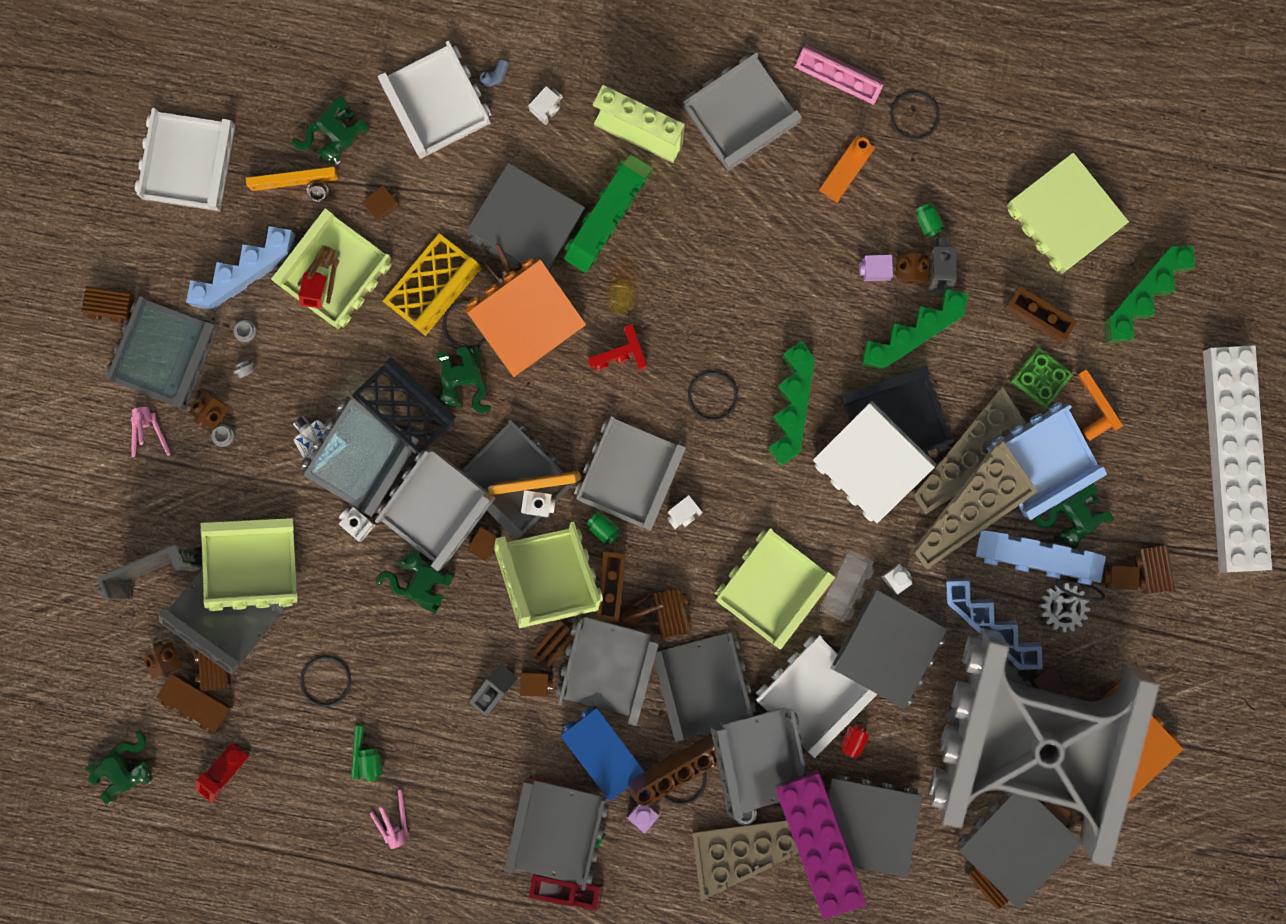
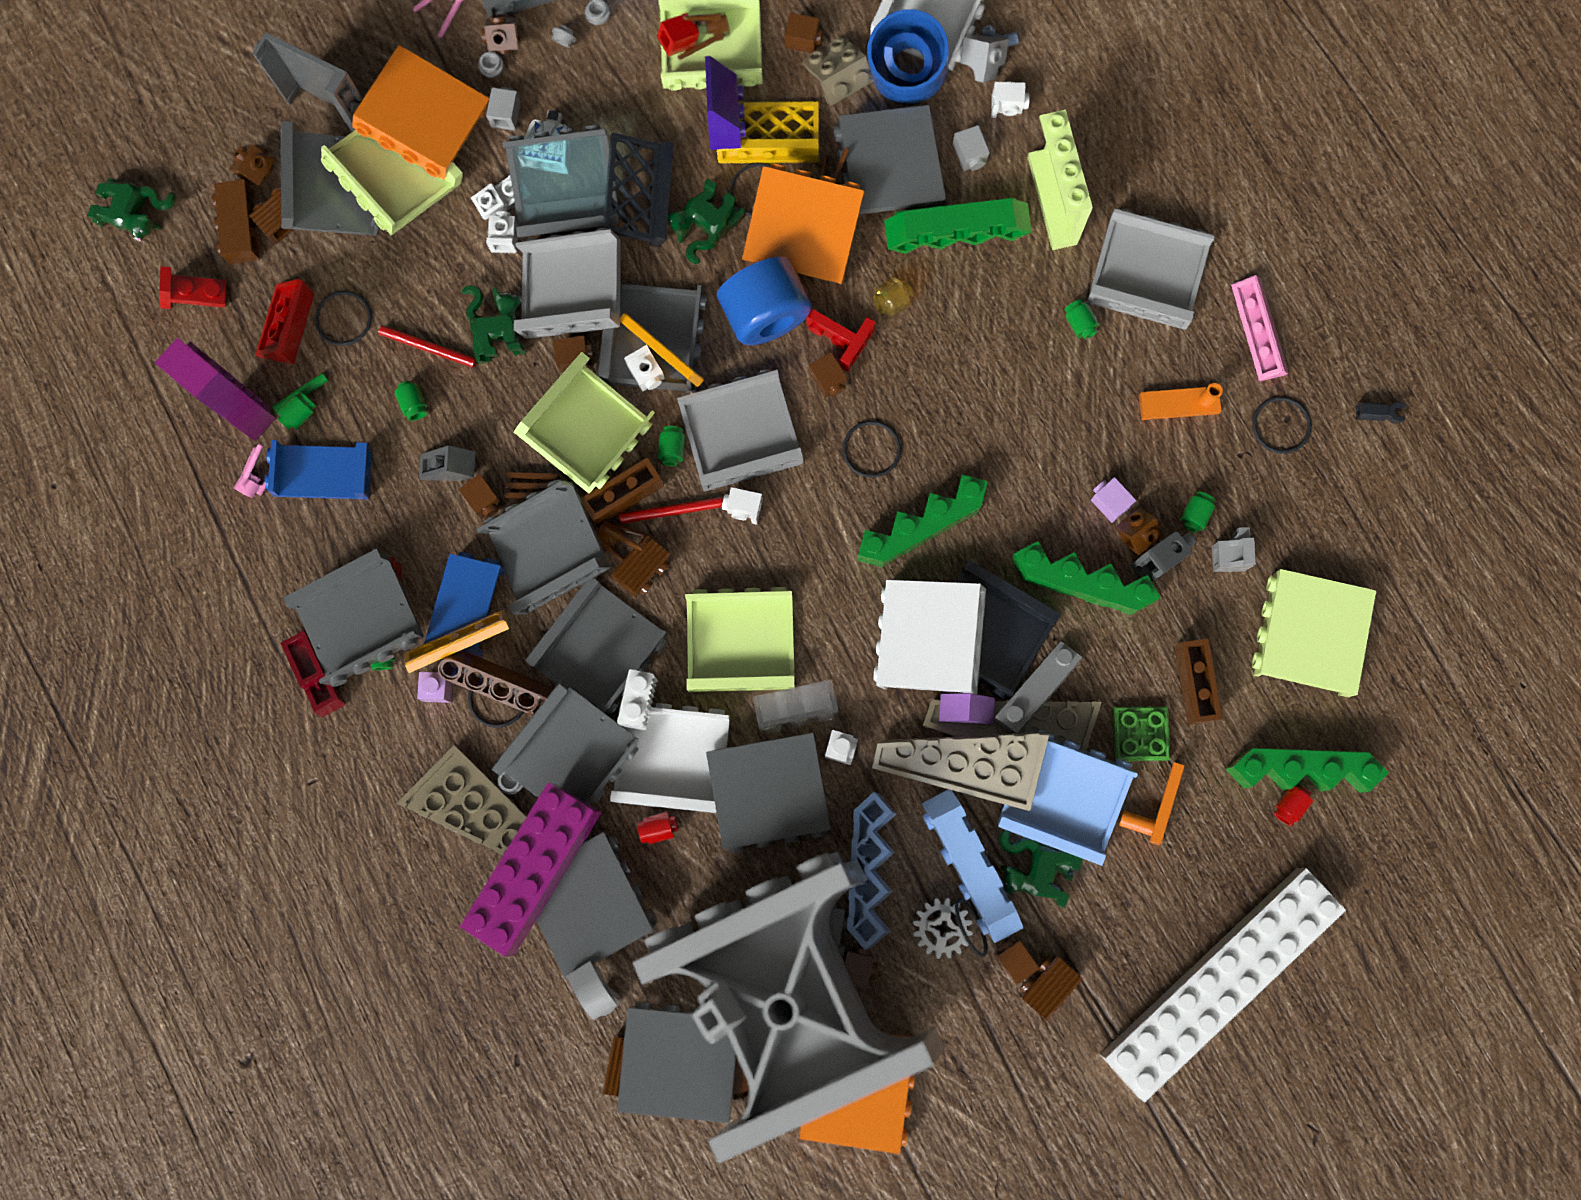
camera: 60 degrees right, 5 degrees down
(226, 513) = (419, 112): none -> orange panel
(264, 452) = (503, 108): none -> light grey brick
(296, 724) = (285, 322): none -> red slope
(325, 509) = (494, 198): none -> white slope
(329, 806) = (216, 388): none -> magenta brick
(385, 644) = (427, 346): none -> red bar
(396, 302) = (723, 106): none -> dark purple slope
(426, 200) = (839, 69): none -> dark tan bracket
(426, 780) = (319, 471): none -> blue panel
(427, 679) = (411, 400): none -> green brick
(460, 126) = (908, 31): none -> blue piece
(501, 95) = (984, 55): none -> light grey brick
(560, 159) = (971, 148): none -> light grey brick
(560, 387) = (764, 301): none -> blue piece
(627, 777) = (456, 641): none -> light orange tile
(641, 384) = (828, 375): none -> reddish brown brick
(648, 560) = (670, 510): none -> red bar
(739, 185) = (1081, 319): none -> green brick
(764, 688) = (637, 700): none -> white brick
(929, 865) = (593, 991): none -> light grey brick
(939, 478) = (967, 709): none -> medium lavender slope
(957, 47) = (1379, 412): none -> black bar
(962, 420) = (1038, 688): none -> light grey plate
(975, 219) = (1235, 554): none -> light grey brick
(1019, 793) = (718, 1012): none -> light grey brick
(1164, 320) = (1293, 805): none -> red brick

